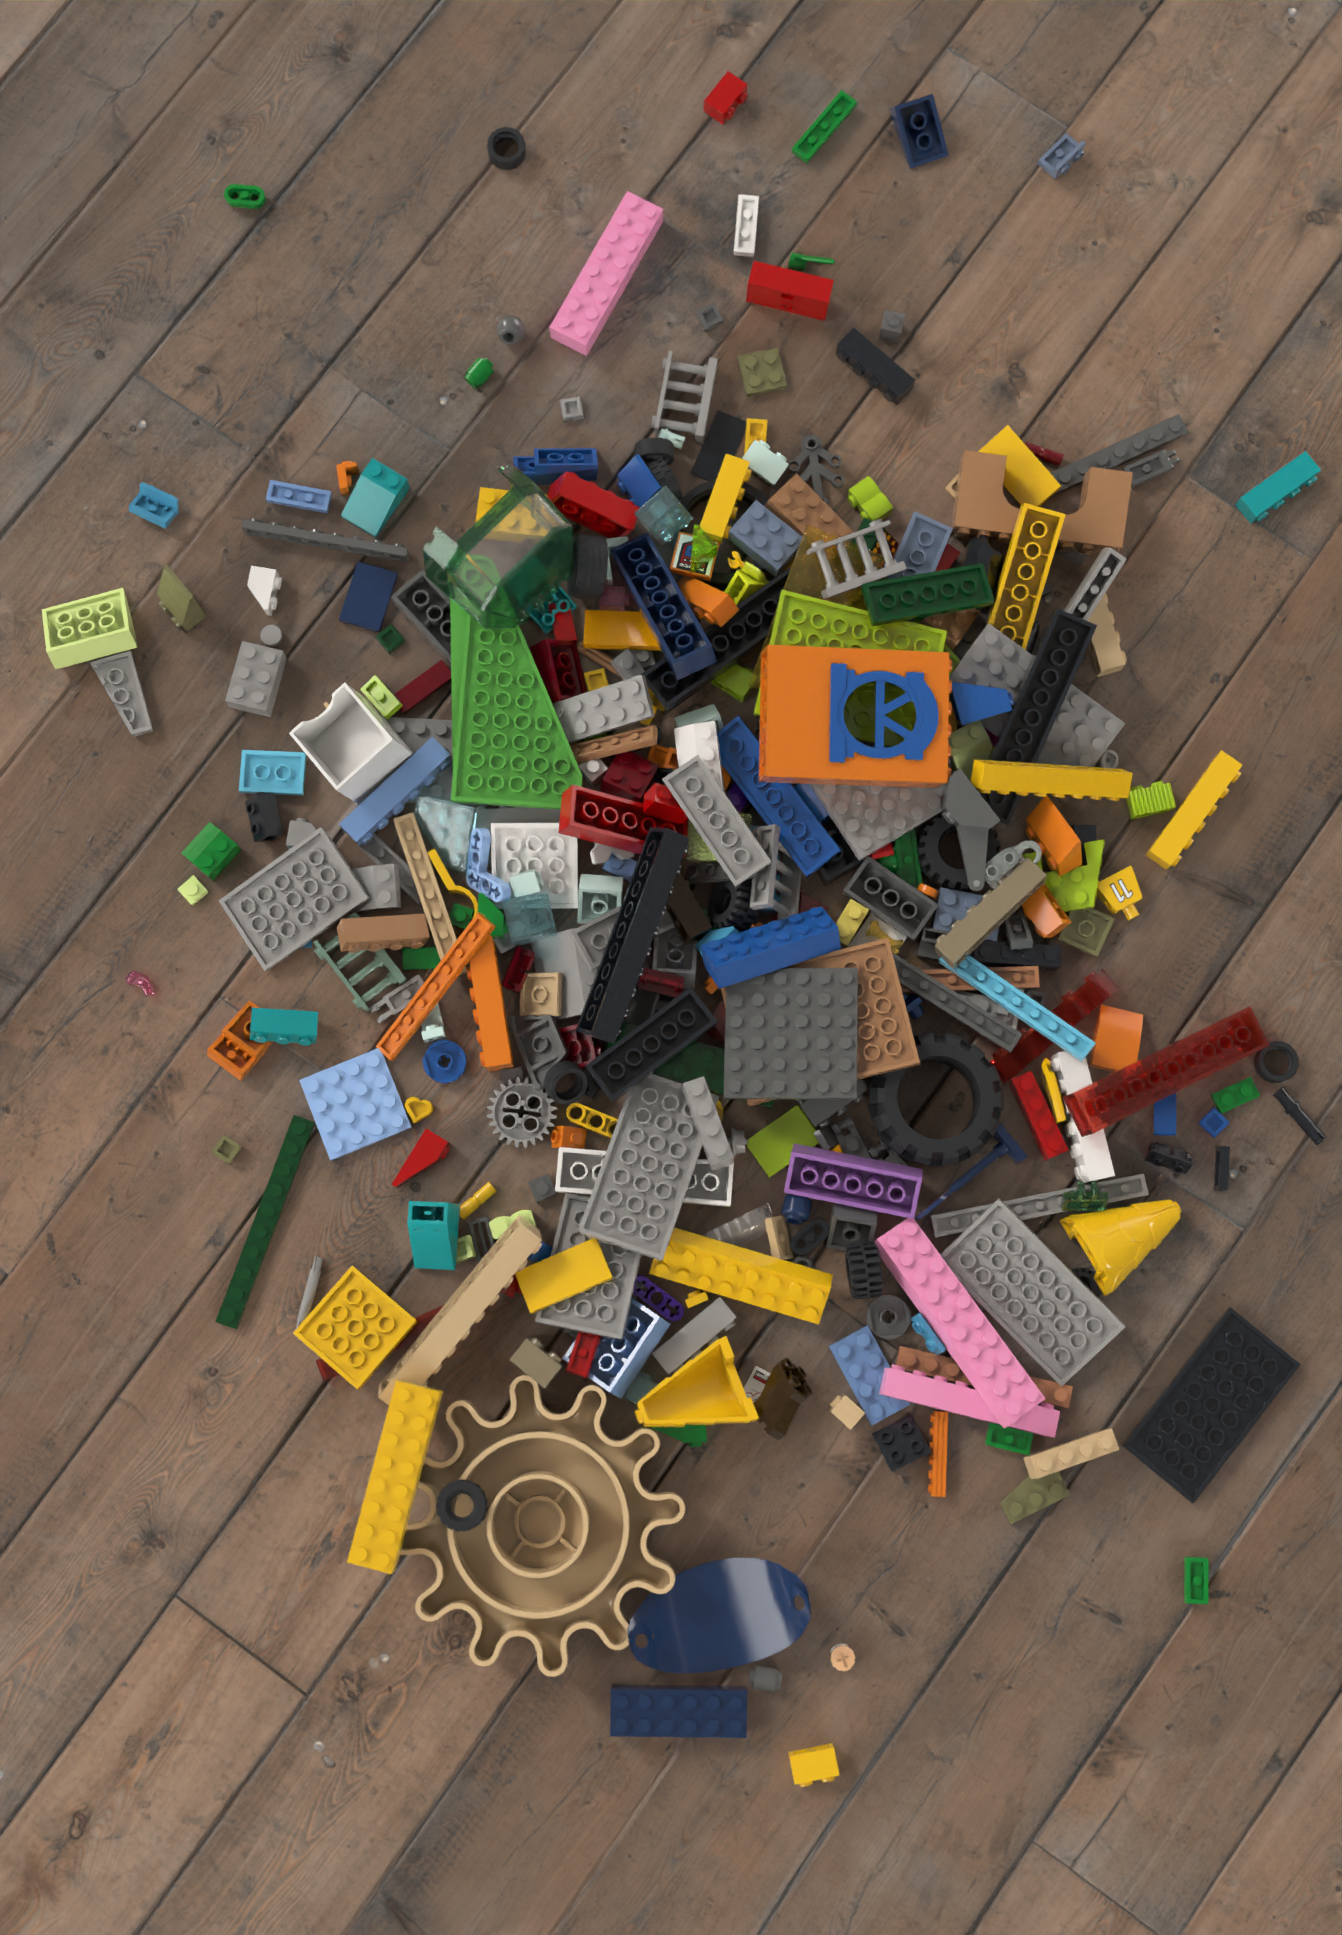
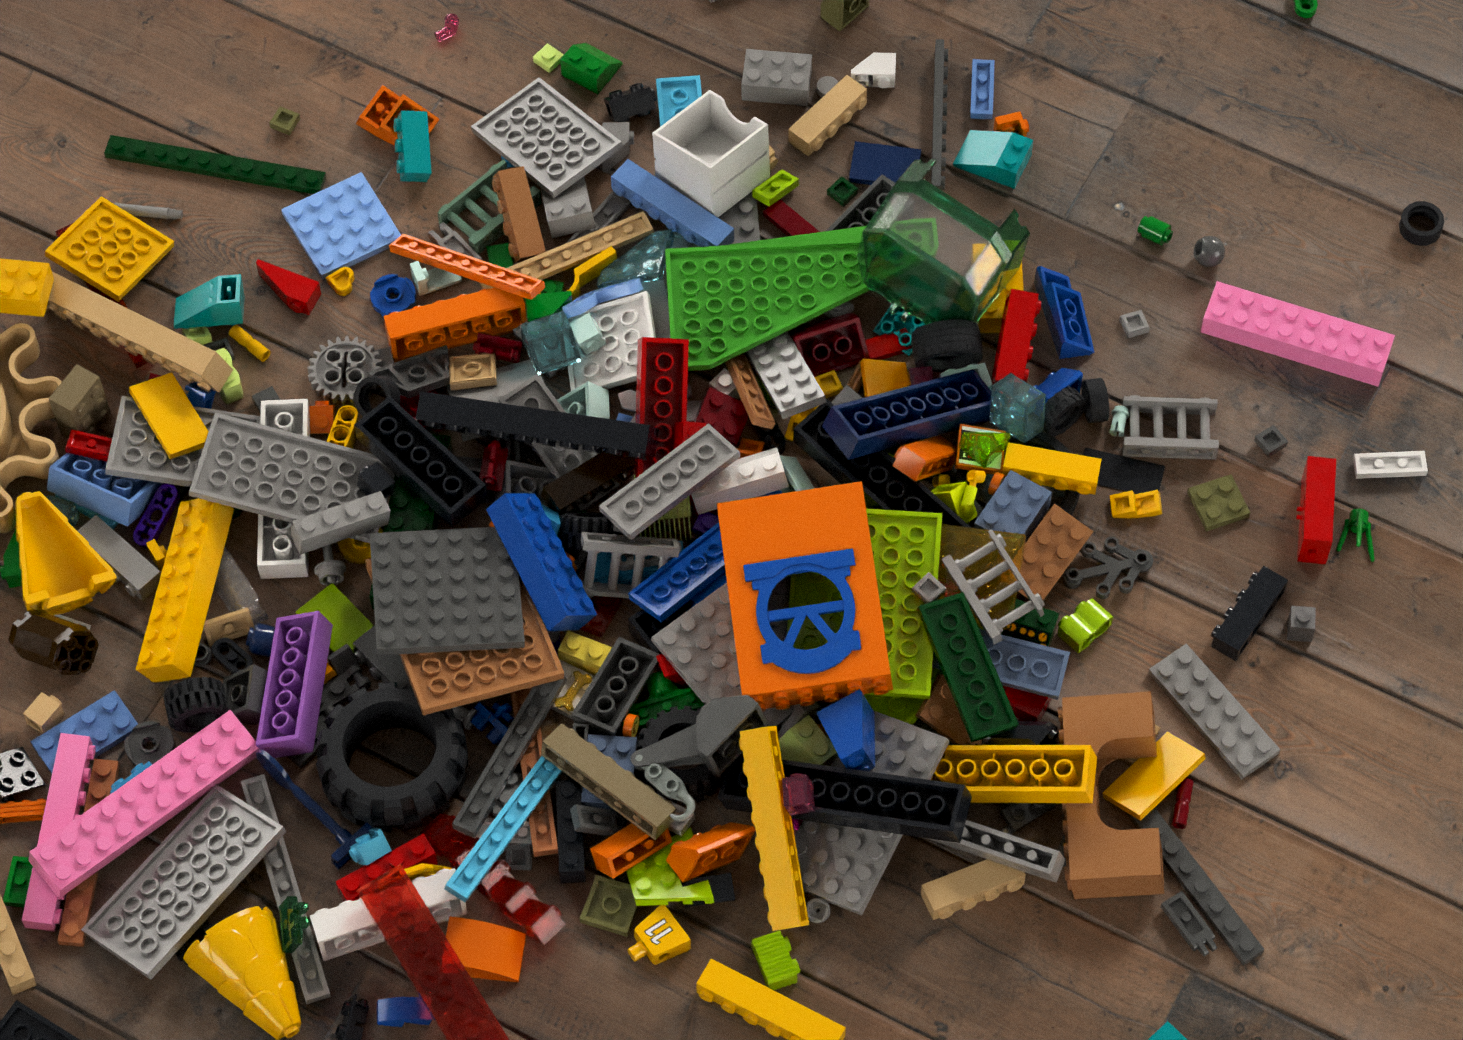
camera: 85 degrees right, 20 degrees down
(306, 638) = (827, 115): none -> tan brick
(665, 1089) = (375, 479): none -> black brick
(731, 545) = (996, 481): none -> orange tile
(765, 462) = (1107, 509): light aqua brick -> none
(853, 613) = (928, 588): none -> light grey tile
(959, 413) = (1214, 711): none -> light grey plate
(1020, 1126) = (369, 847): none -> medium azure brick
(1031, 752) = (798, 794): none -> clear pink brick

